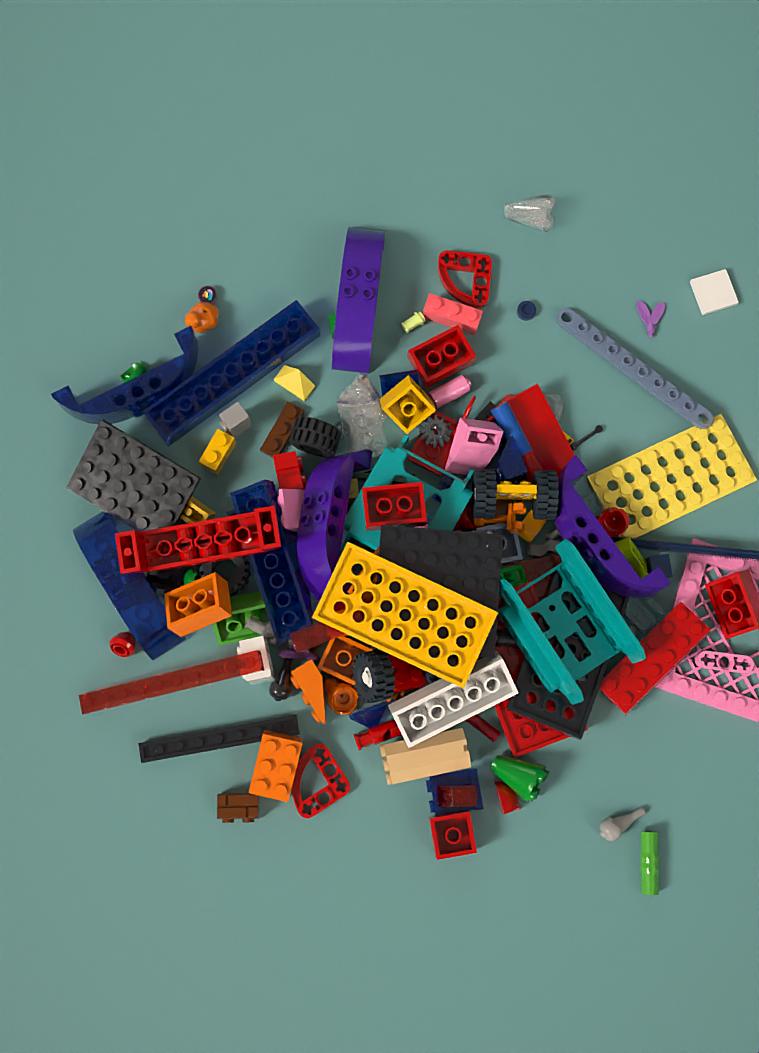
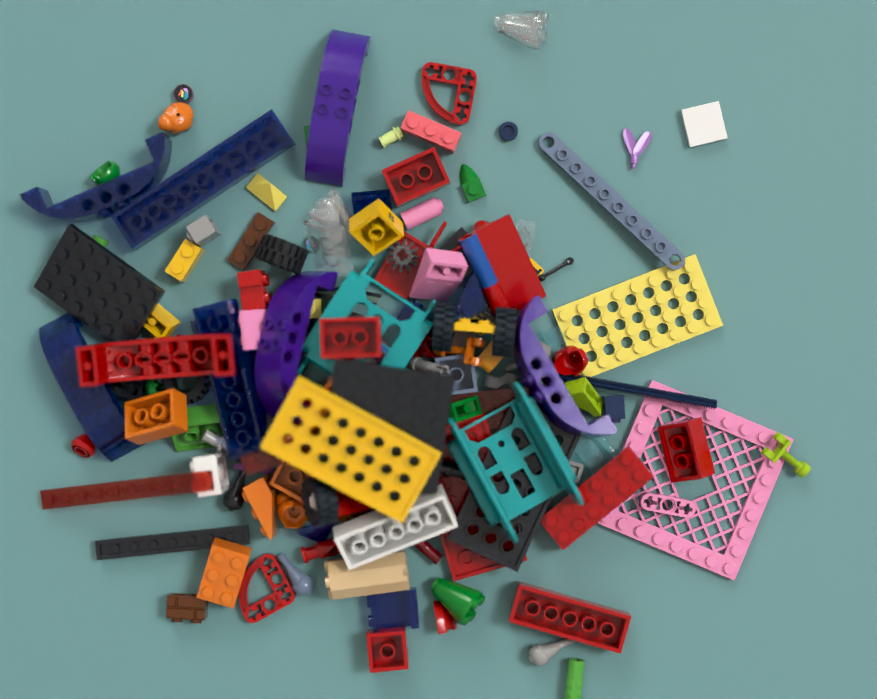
camera: 10 degrees right, 10 degrees up
(357, 772) = (301, 582): none -> sand blue piece
(456, 795) = (394, 614): clear red slope -> none
(495, 362) = (471, 184): none -> green plate
(638, 785) = (569, 617): none -> red brick

